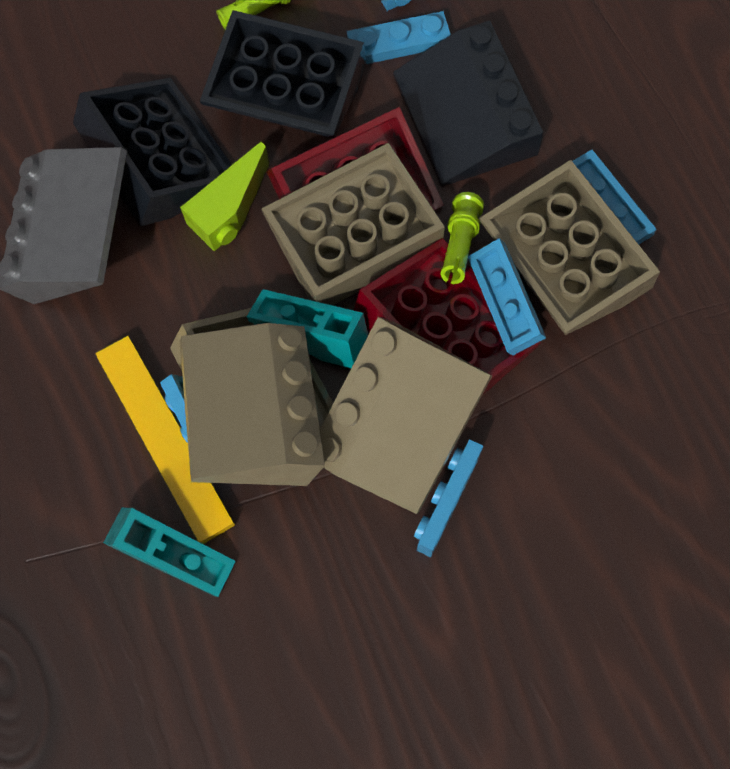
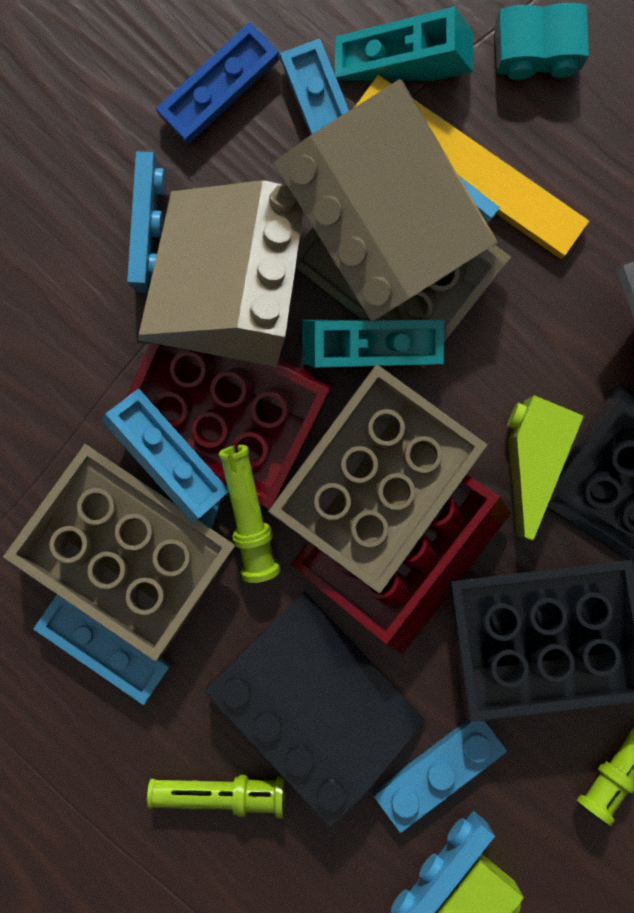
camera: 150 degrees right, 15 degrees up
(52, 510) = (541, 40): none -> teal brick
(257, 539) = (313, 84): none -> dark azure plate
(336, 594) = (218, 83): none -> blue plate
(544, 72) = (163, 795): none -> lime pin

